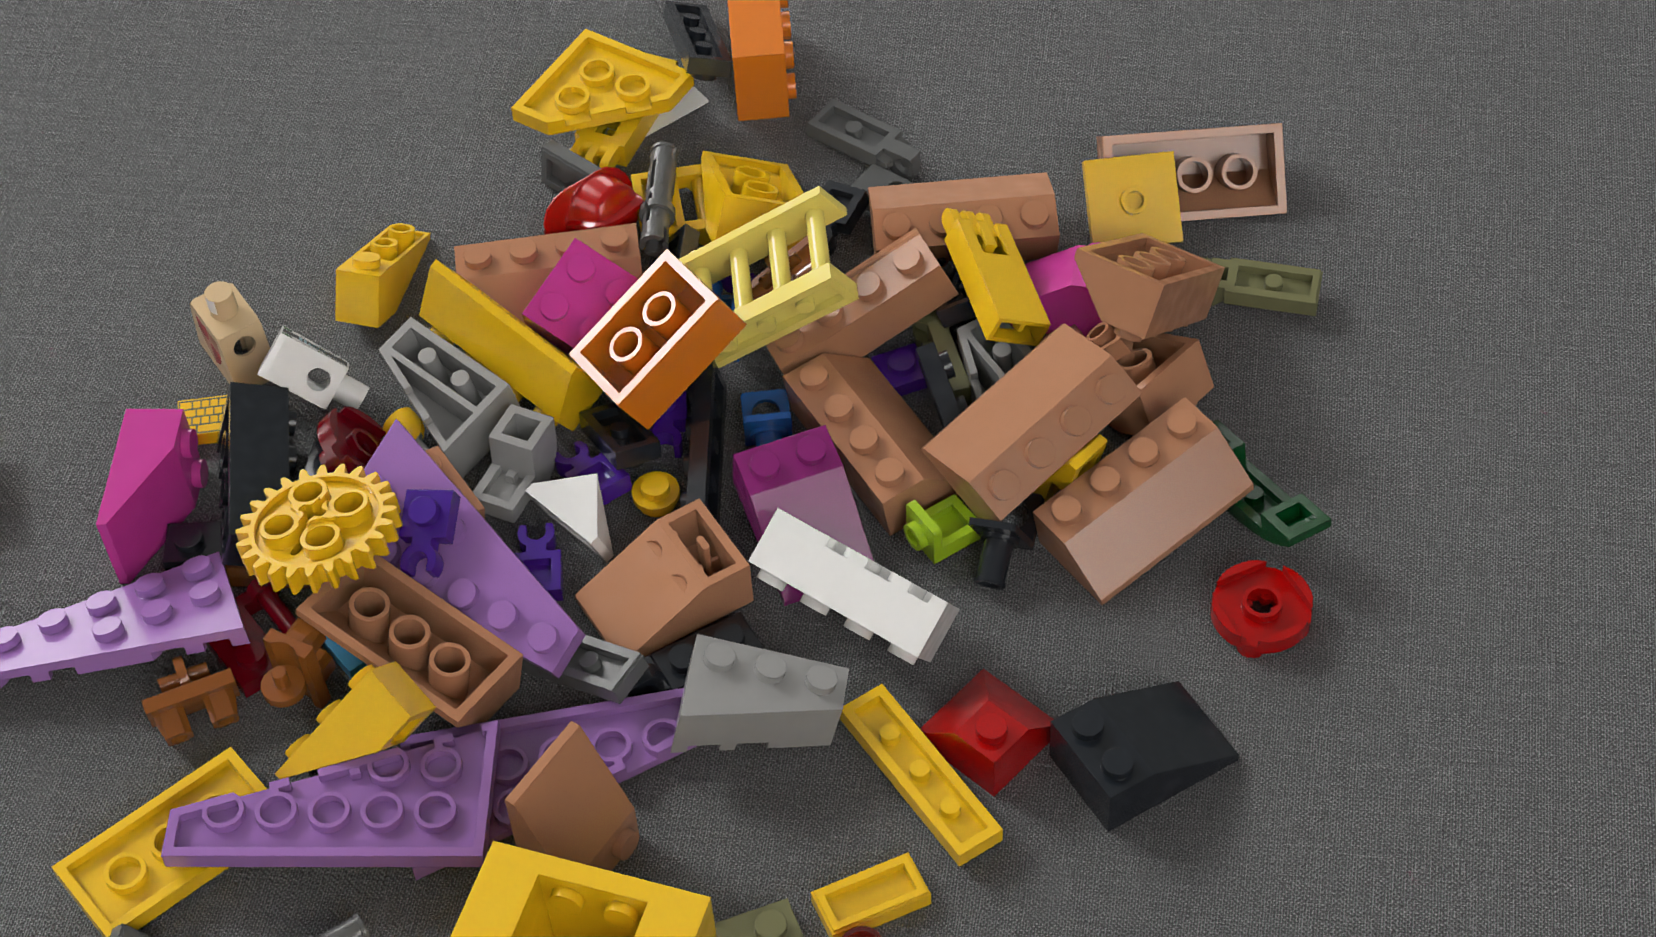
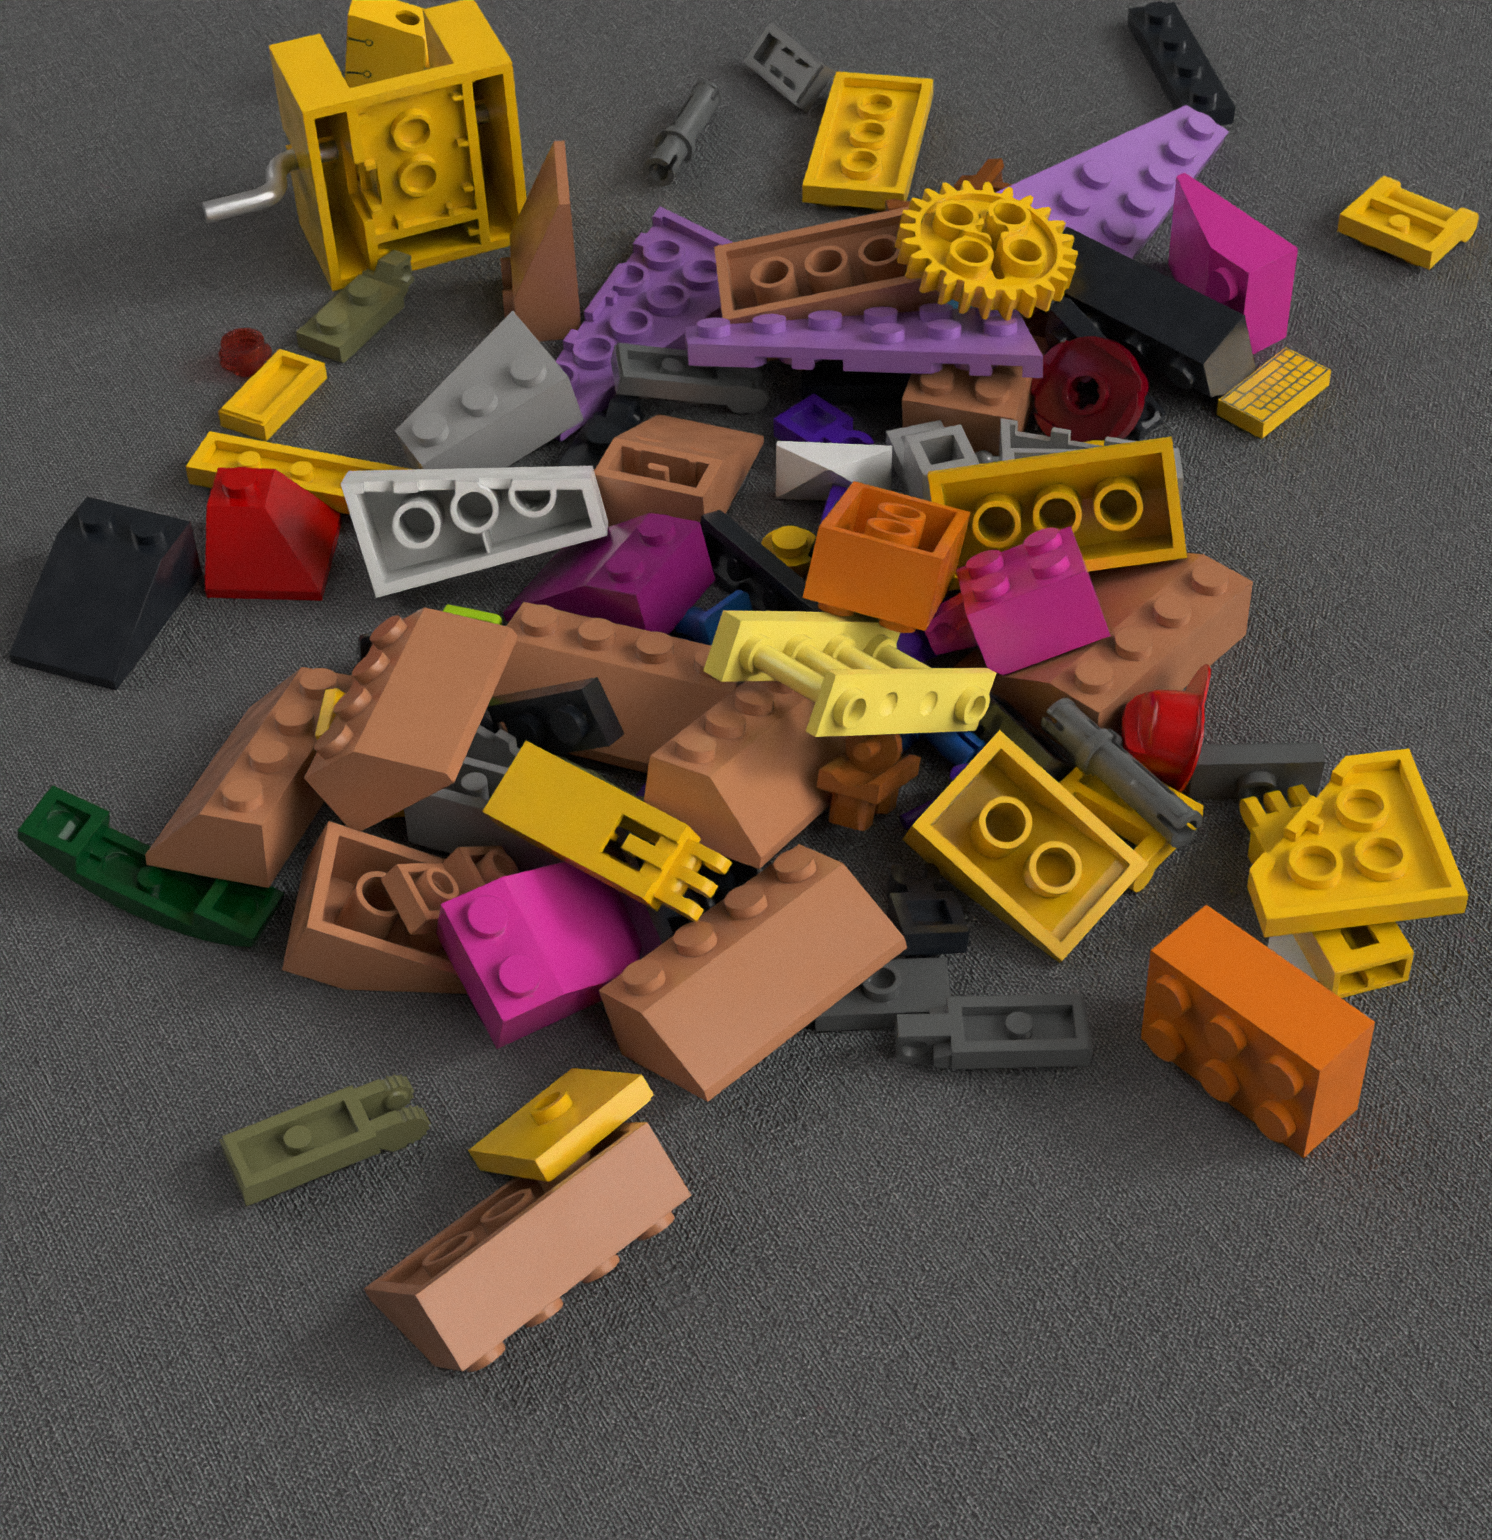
camera: 140 degrees right, 5 degrees down
(221, 321) = (1355, 416): tan torso -> none
(295, 356) = (1232, 412): white torso -> none
(365, 812) = (734, 190): medium lavender wing -> none
(372, 717) = (786, 204): yellow slope -> none
(378, 275) = (1318, 564): yellow slope -> none
(427, 521) = (903, 311): dark purple plate -> none
(697, 40) = (1405, 1043): black plate -> none
(1147, 285) = (413, 928): nougat slope -> none
(1261, 632) = (86, 750): red plate -> none

